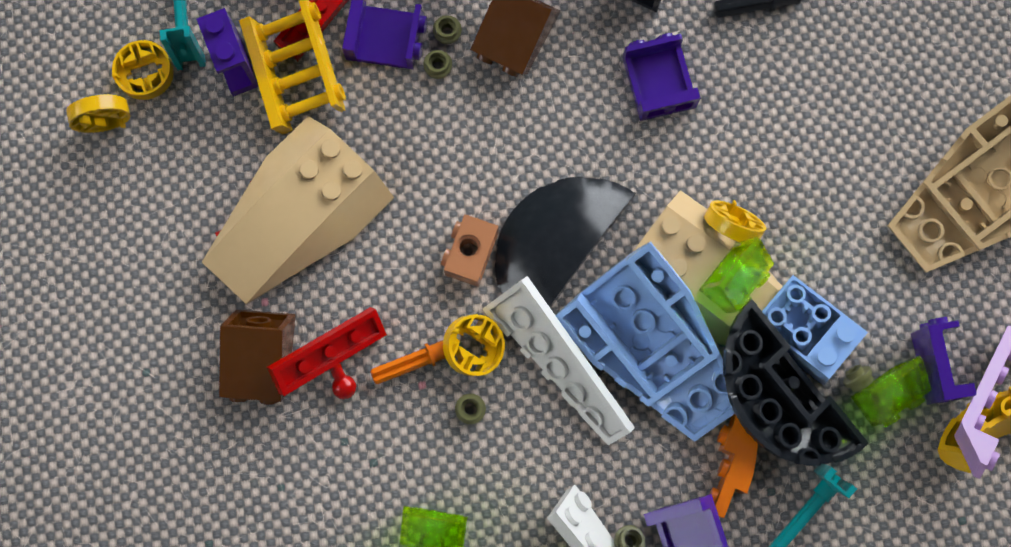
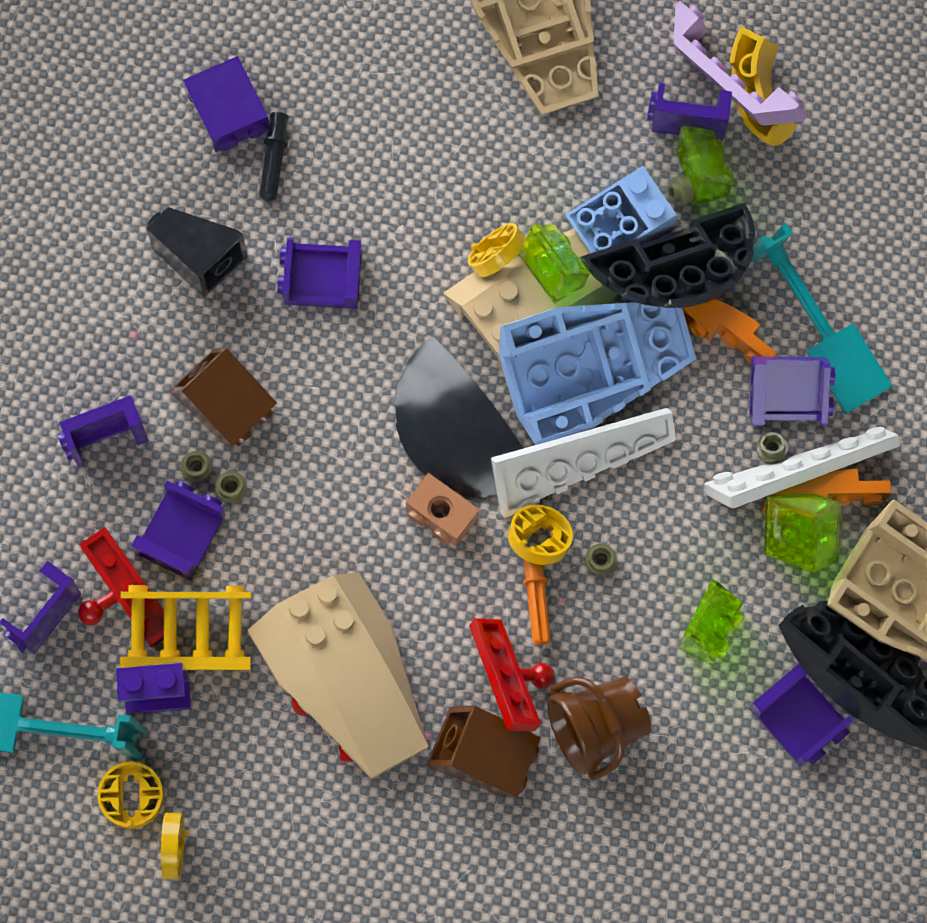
camera: 75 degrees left, 5 degrees down
(305, 450) = (596, 722): none -> reddish brown piece

